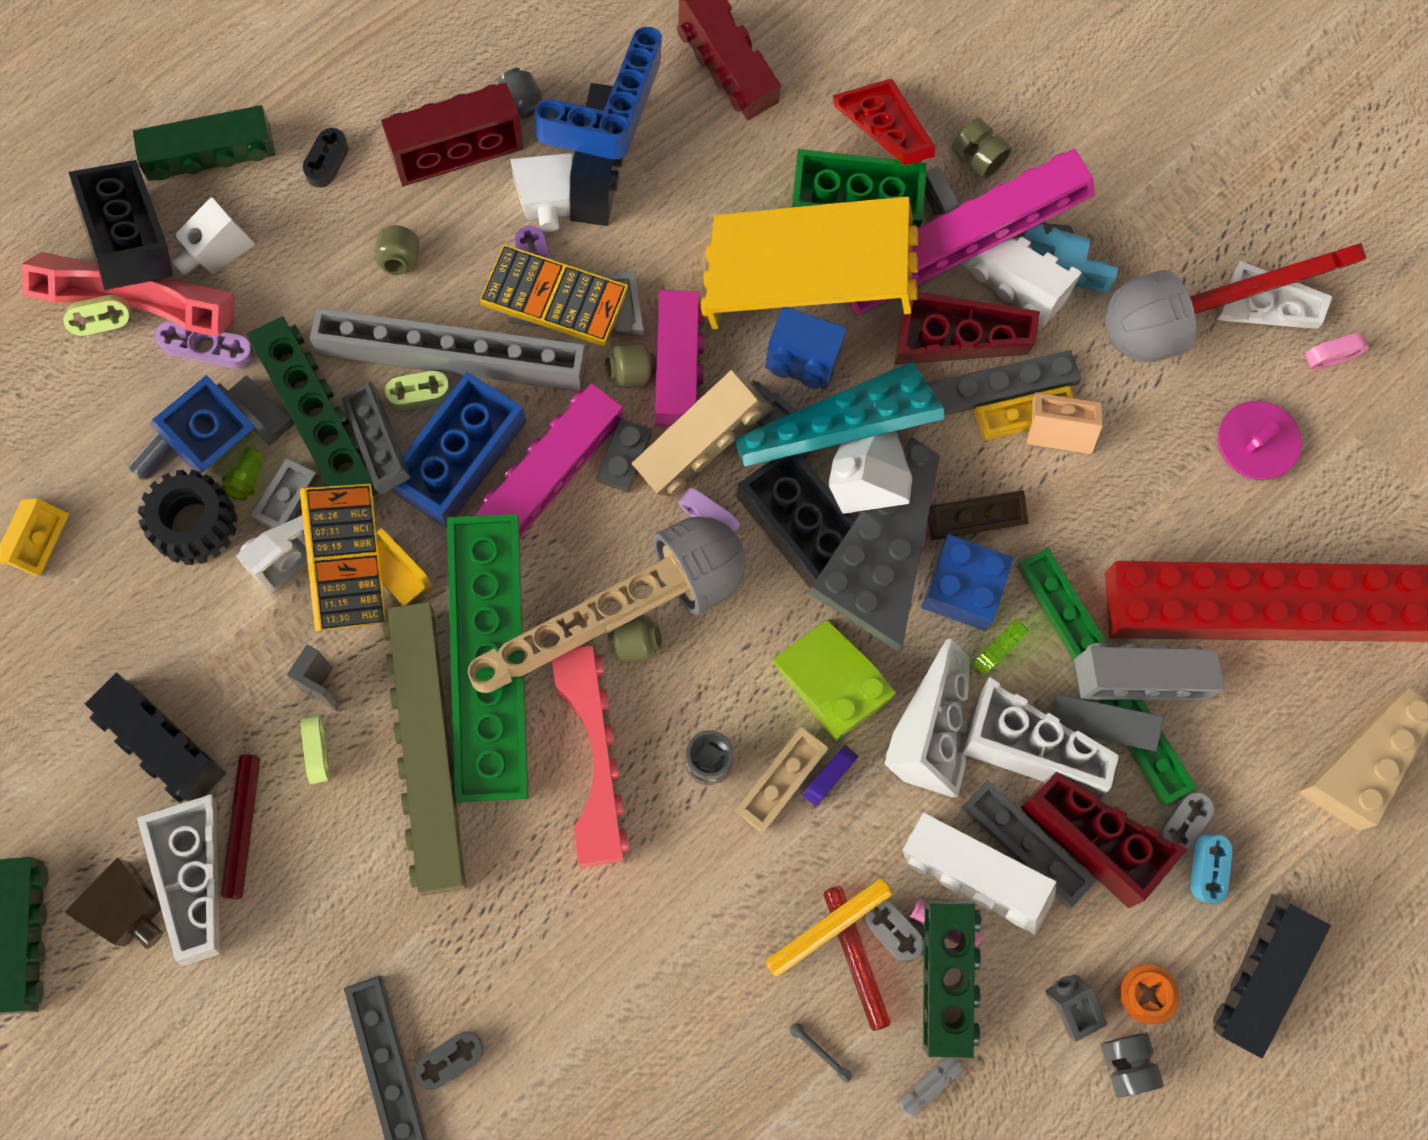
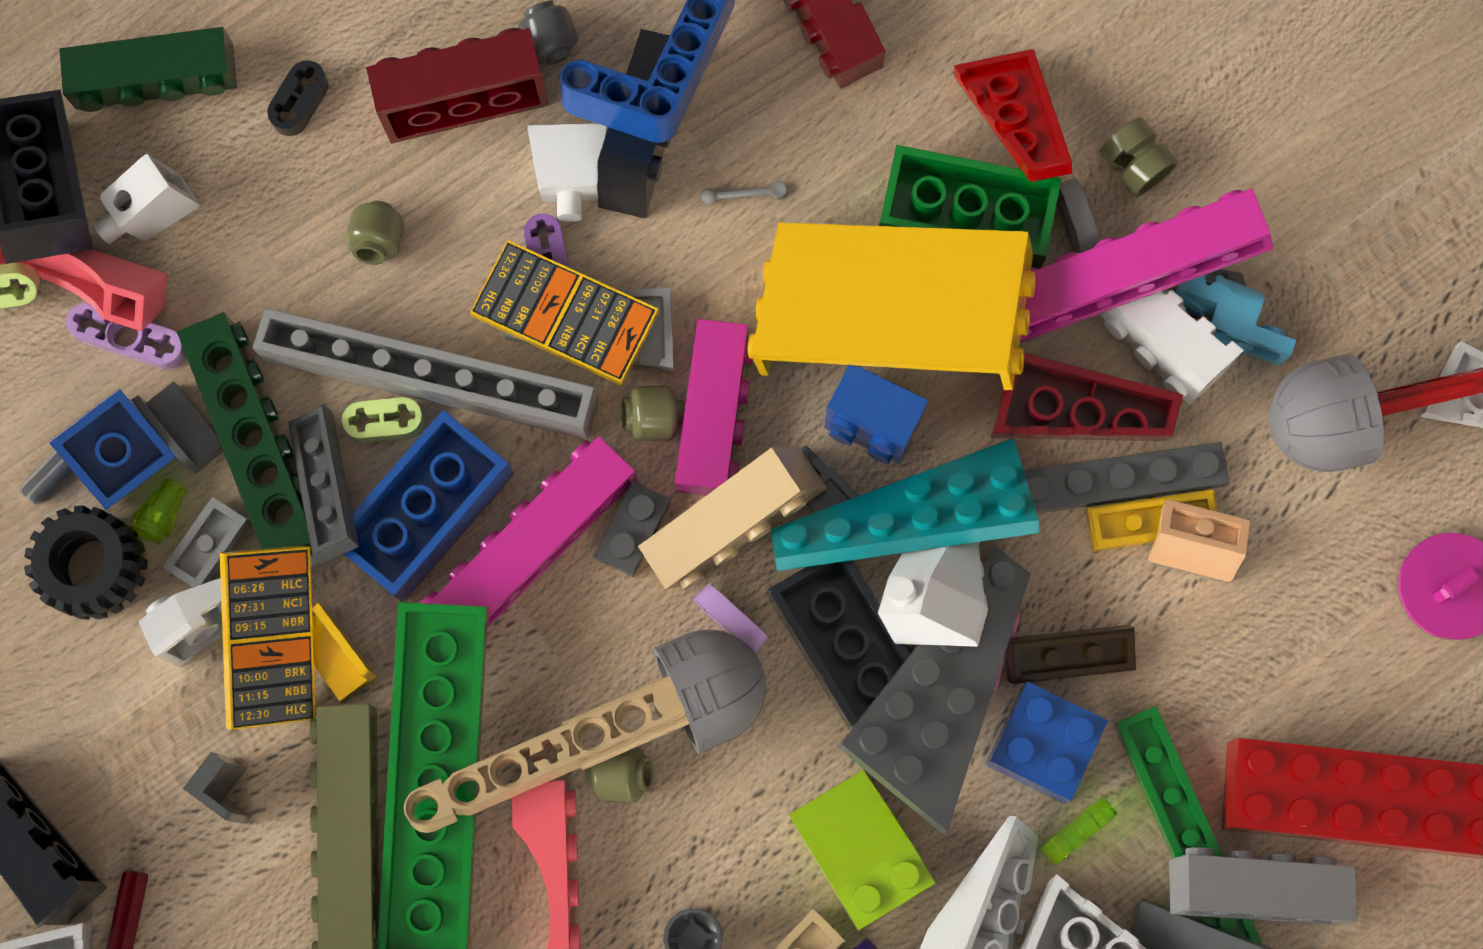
camera: 15 degrees right, 5 degrees up
(315, 749) = (214, 873): yellowish green beam -> none
(708, 197) = (777, 191): none -> light grey hinge

